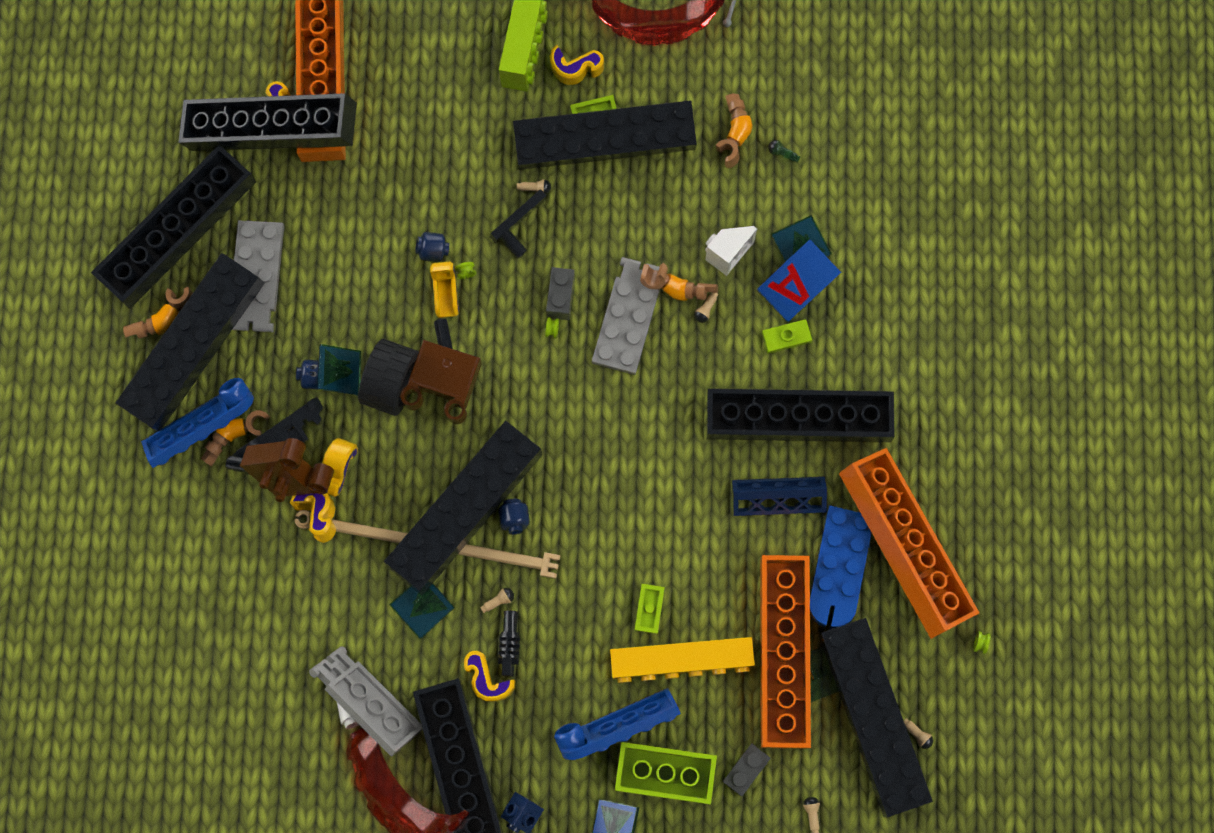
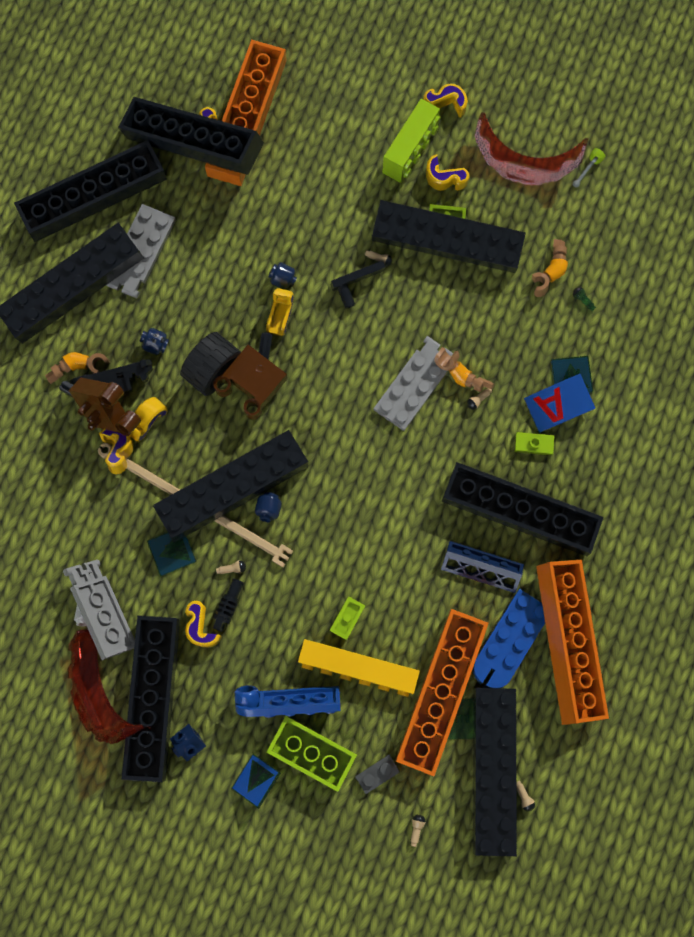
camera: 15 degrees right, 0 degrees up
(162, 319) = (53, 258): medium nougat piece -> none
(197, 425) = (51, 348): blue plate -> none
(339, 369) = (175, 344): piece -> none
(465, 270) = (301, 303): lime bush -> none
(552, 327) = (352, 371): lime bush -> none
(560, 293) = (368, 347): dark grey brick -> none
(729, 247) = (513, 357): white slope -> none
(981, 642) = (602, 742): lime bush -> none

